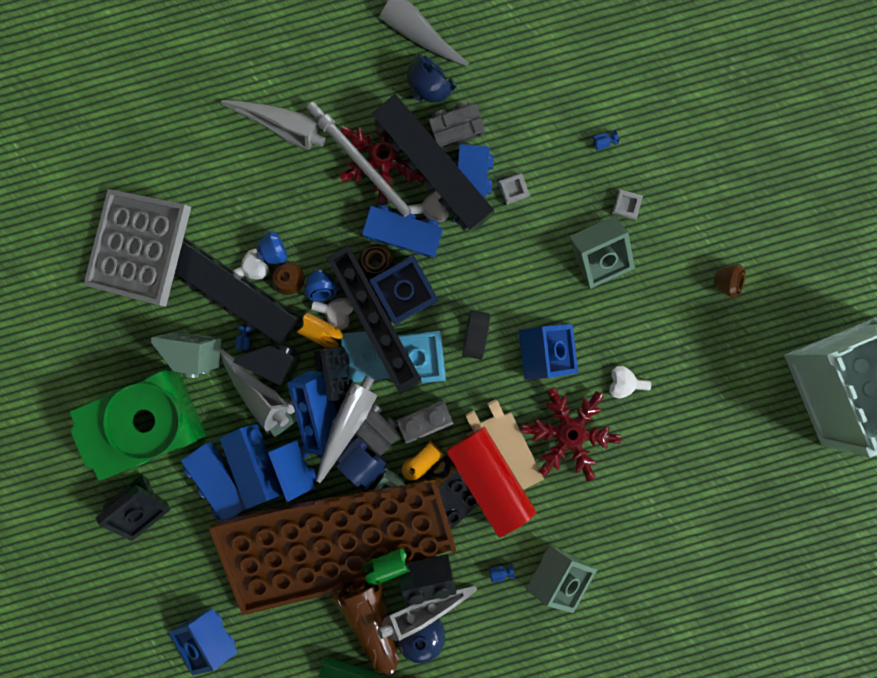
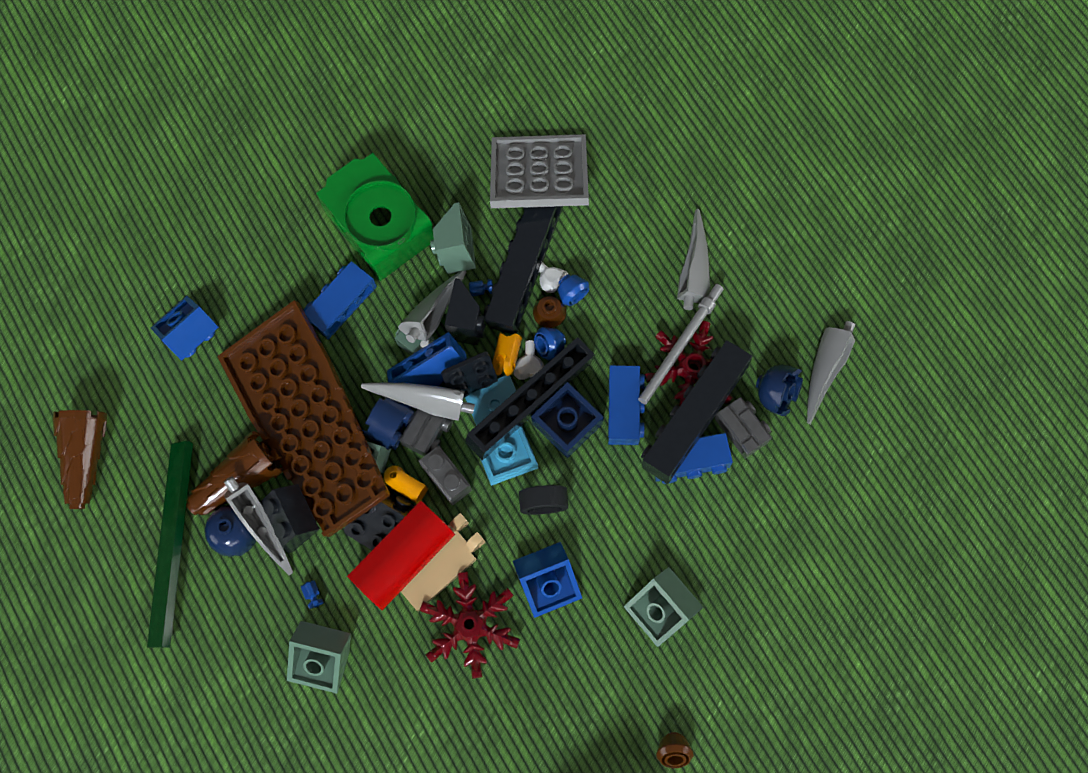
camera: 80 degrees right, 15 degrees down
(133, 510) = (295, 233): black bracket -> none
(251, 466) = (361, 325): blue brick -> none
(292, 469) = (367, 360): blue slope -> none
(369, 258) = (589, 385): dark brown cone -> none
(386, 567) = (293, 471): green piece -> none
(430, 208) = (653, 424): white rock -> none
(513, 189) = (700, 501): light grey tile -> none
(603, 140) = (777, 577): blue piece -> none
(625, 382) = (537, 669): white rock -> none
(626, 205) = (720, 620): light grey tile -> none

